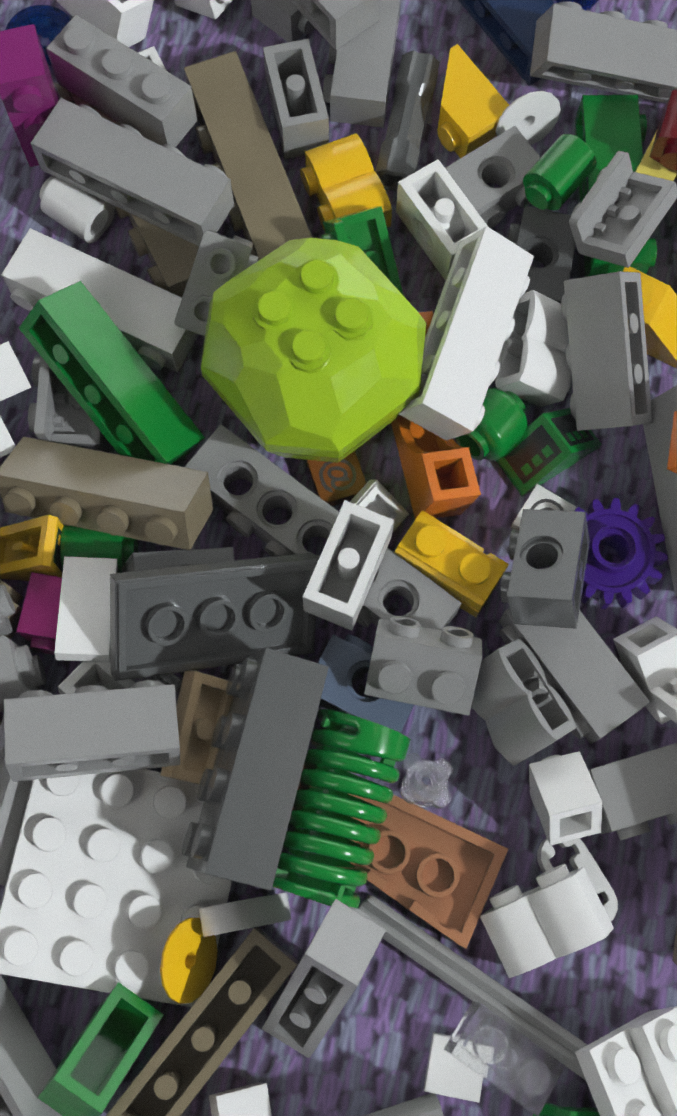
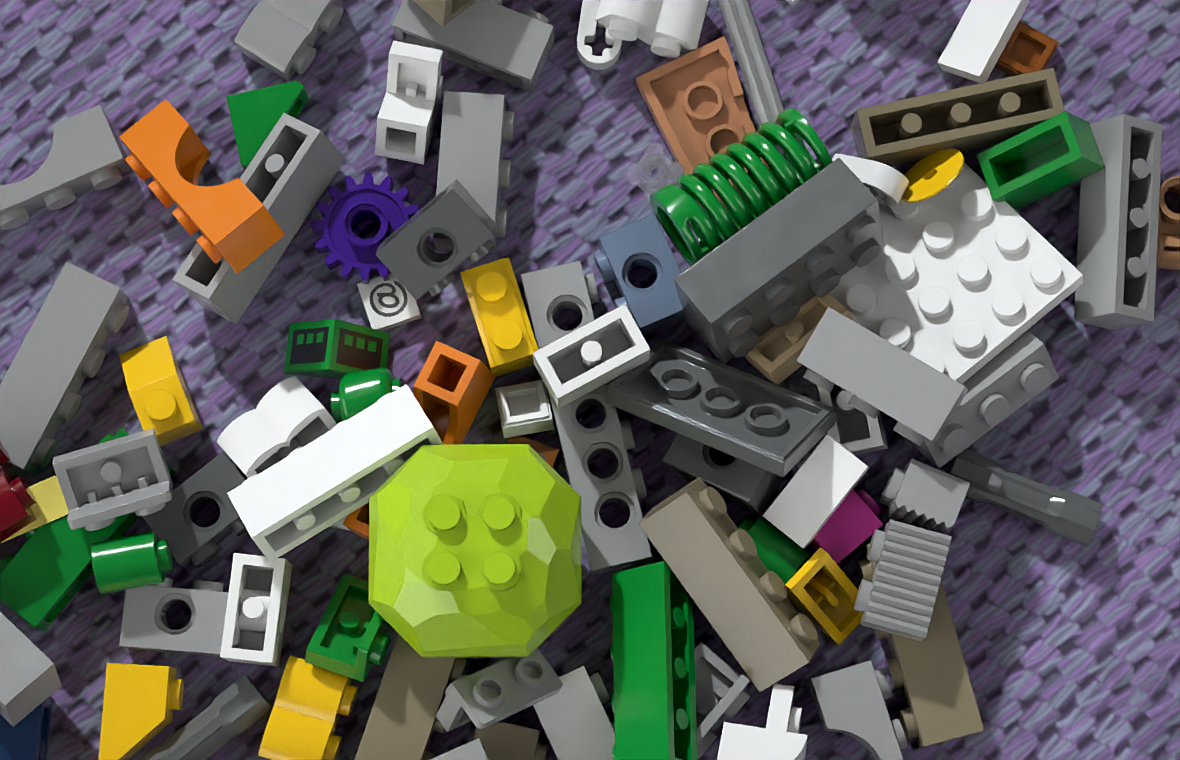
camera: 140 degrees left, 5 degrees up
(324, 978) = (843, 79): light grey brick -> none
(424, 665) = (591, 245): light grey bracket -> none
(519, 703) = (541, 171): light grey brick -> none
(532, 115) = (97, 650): white piece -> none
(565, 798) = (564, 79): white brick -> none
(607, 351) = (232, 375): light grey brick -> none

